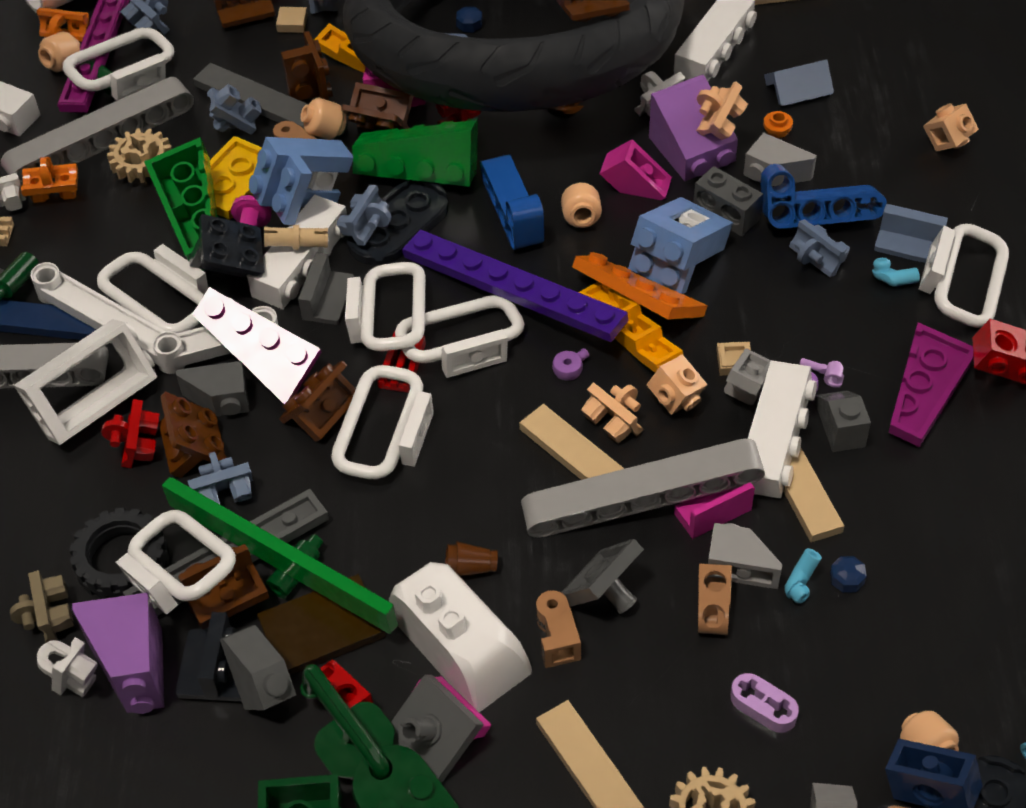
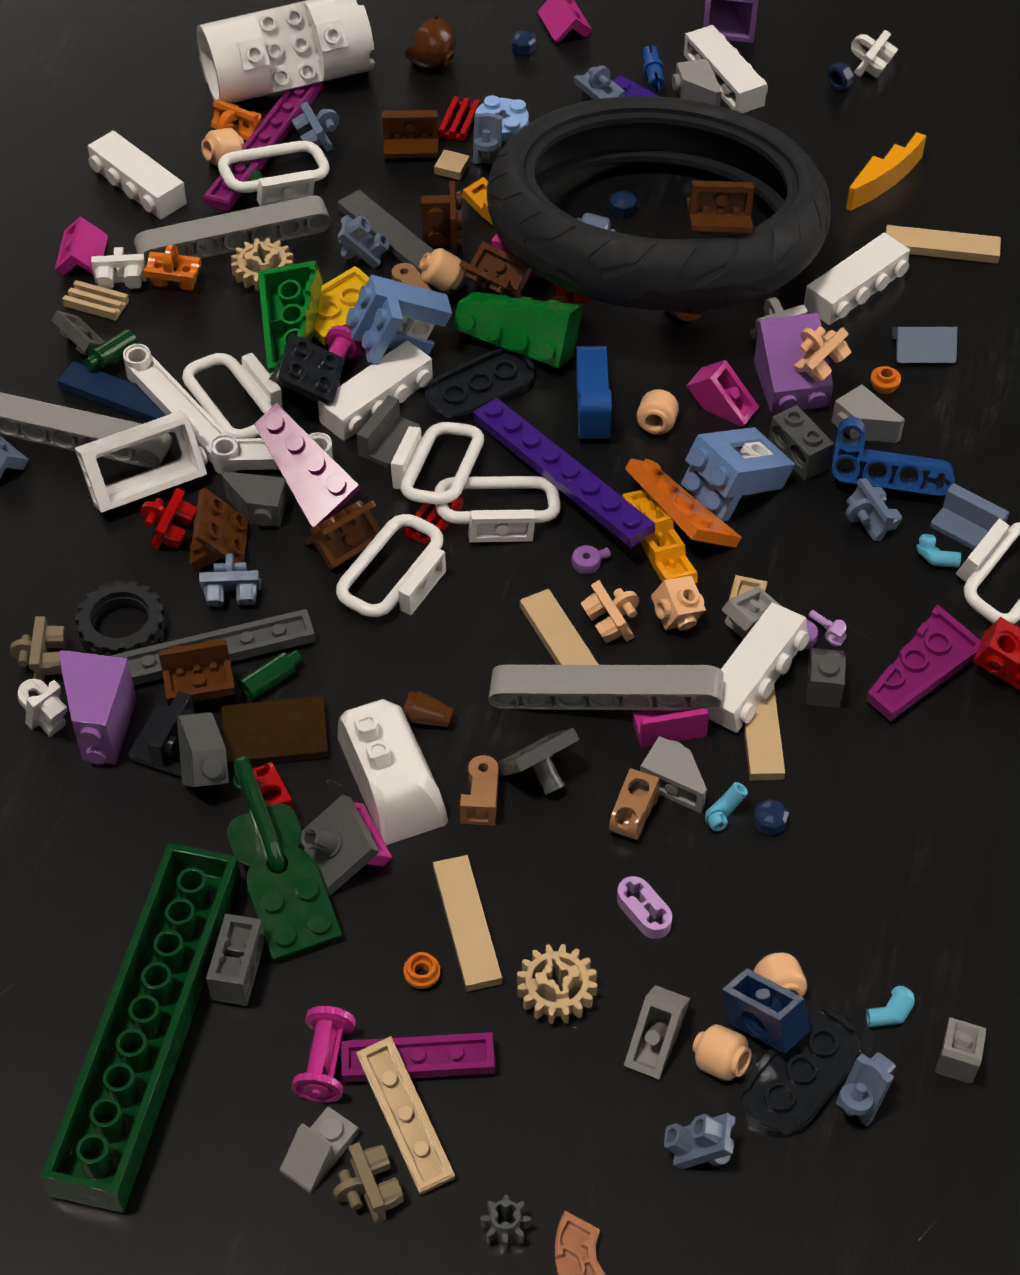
camera: 15 degrees right, 0 degrees up
(156, 581) = (138, 648): white bar -> none
(282, 555) = (257, 659): green tile -> none
(296, 237) = (373, 376): tan pin -> none
(366, 215) = (450, 370): sand blue hips -> none

